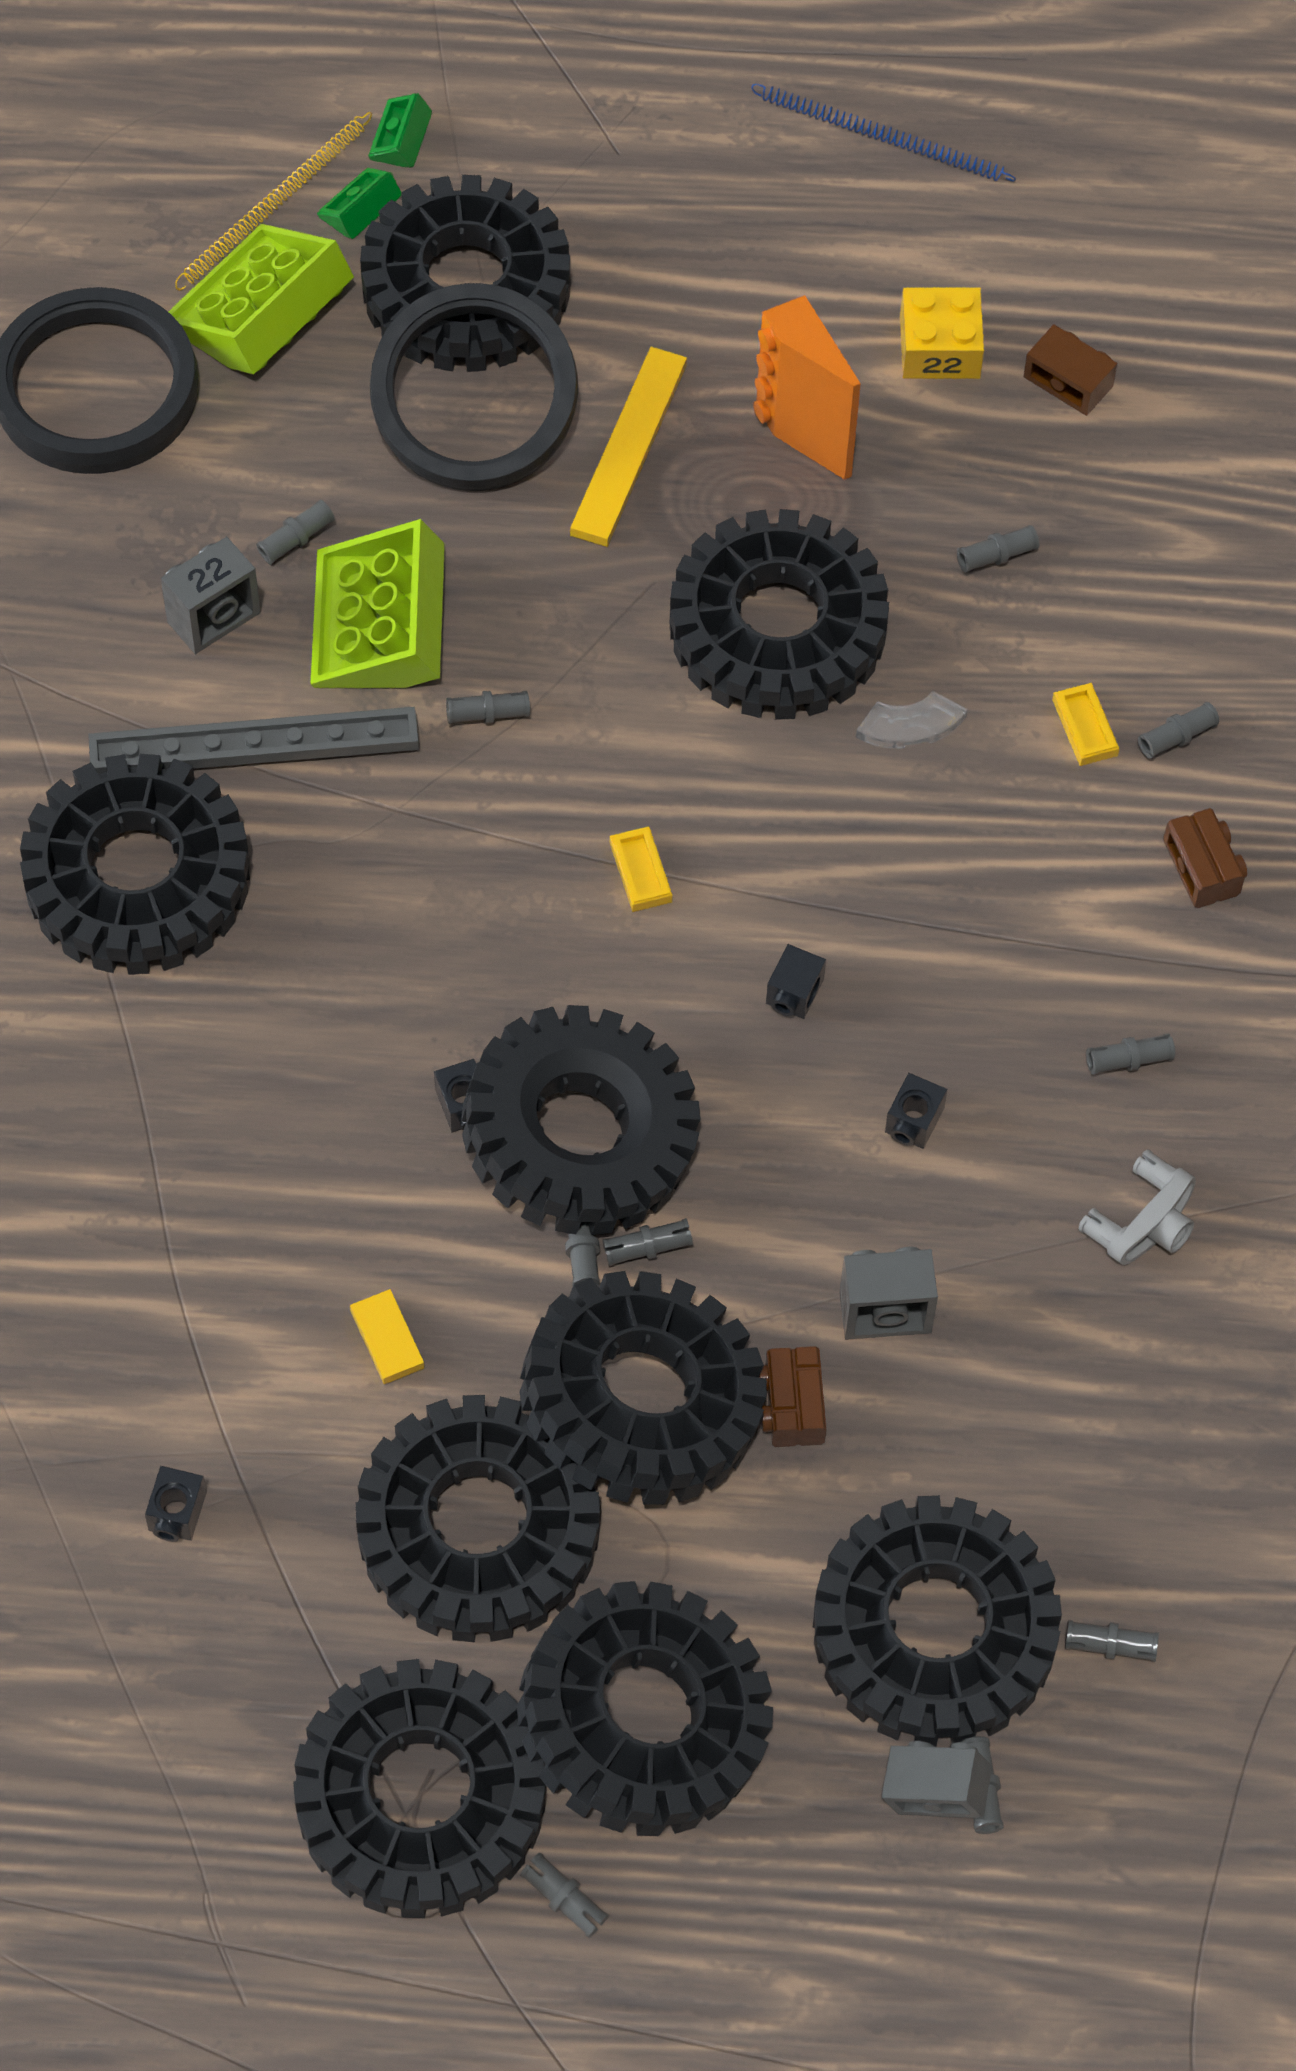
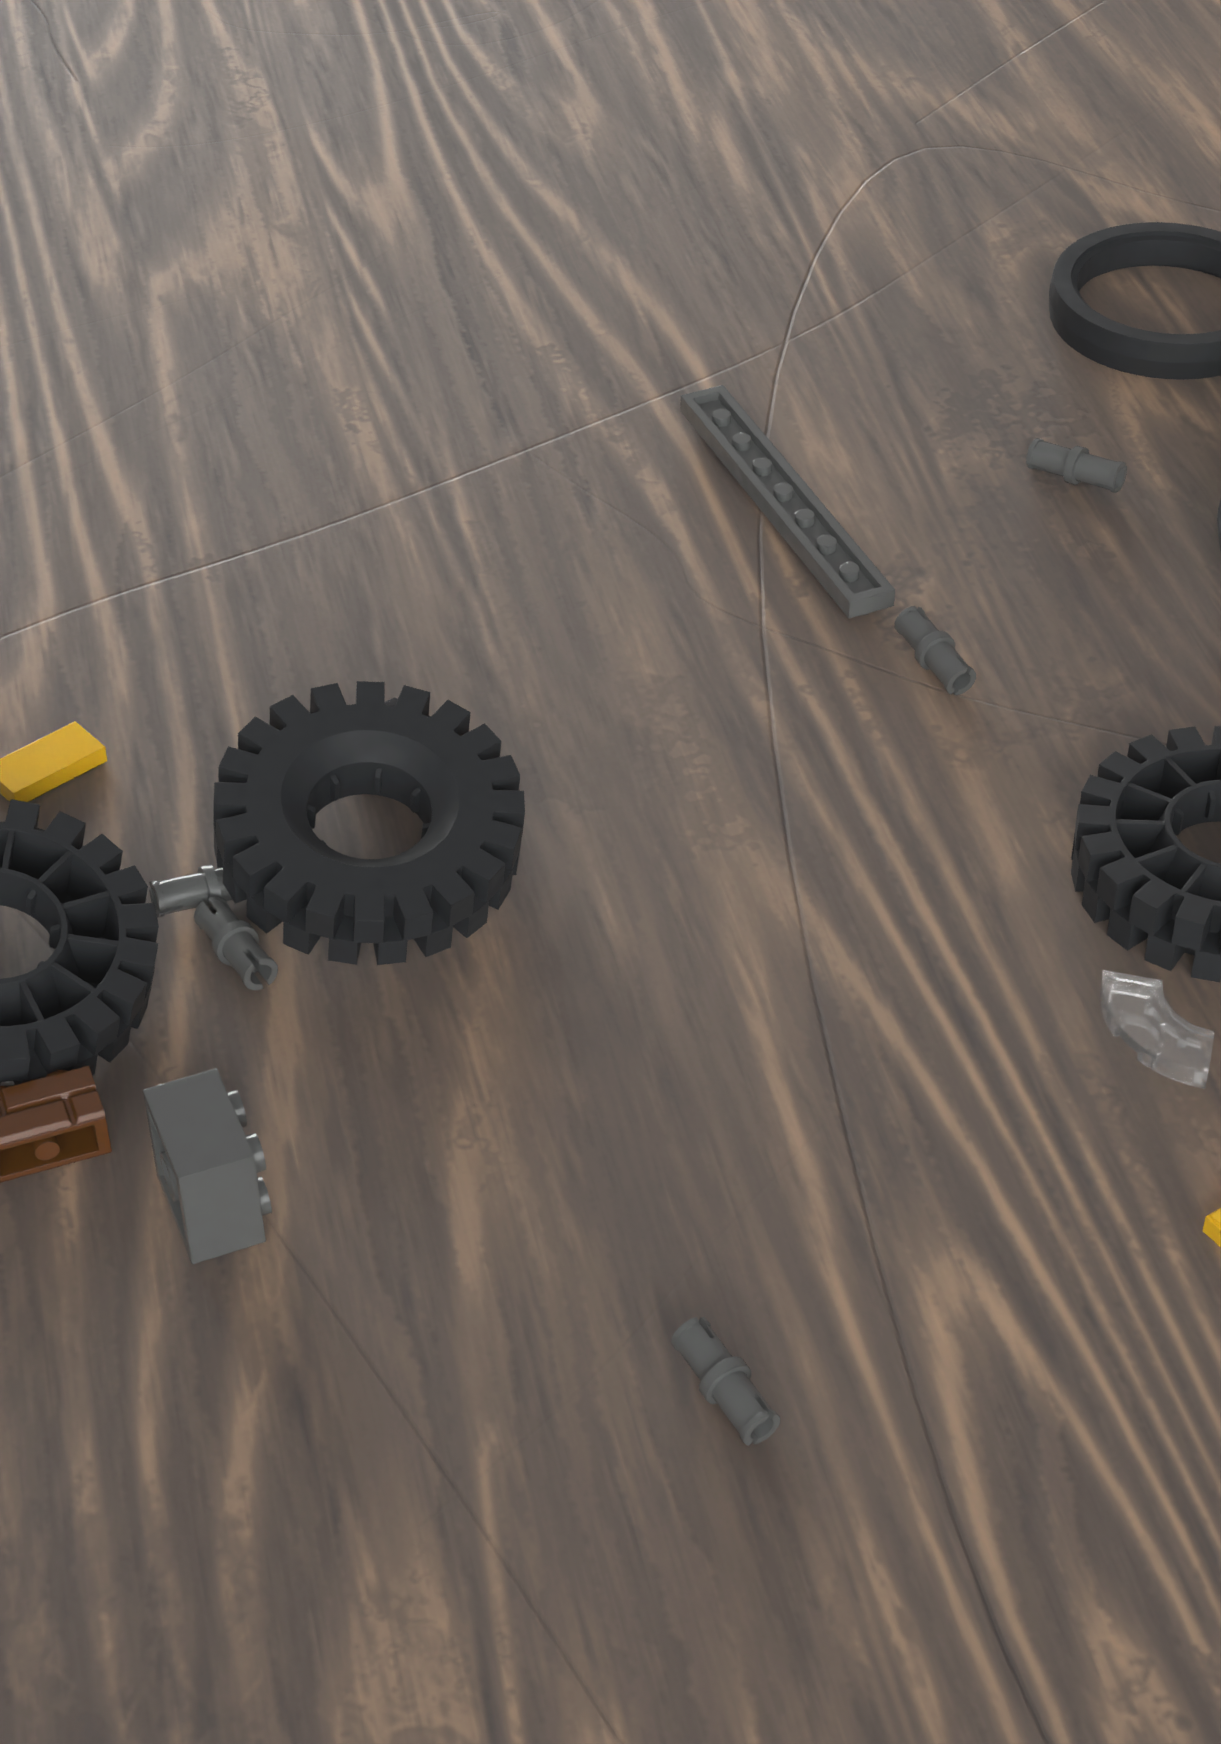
camera: 75 degrees right, 20 degrees down
(145, 922) = (612, 489): black tyre -> none
(210, 594) = (938, 408): dark grey brick -> none
(379, 610) = (1017, 546): lime slope -> none
(640, 869) = (782, 828): yellow tile -> none
(795, 982) = (673, 990): black brick -> none
(919, 1096) = (522, 1153): black brick -> none
(1157, 1223) = (447, 1473): light grey connector -> none
(1205, 858) = (1113, 1396): reddish brown brick -> none

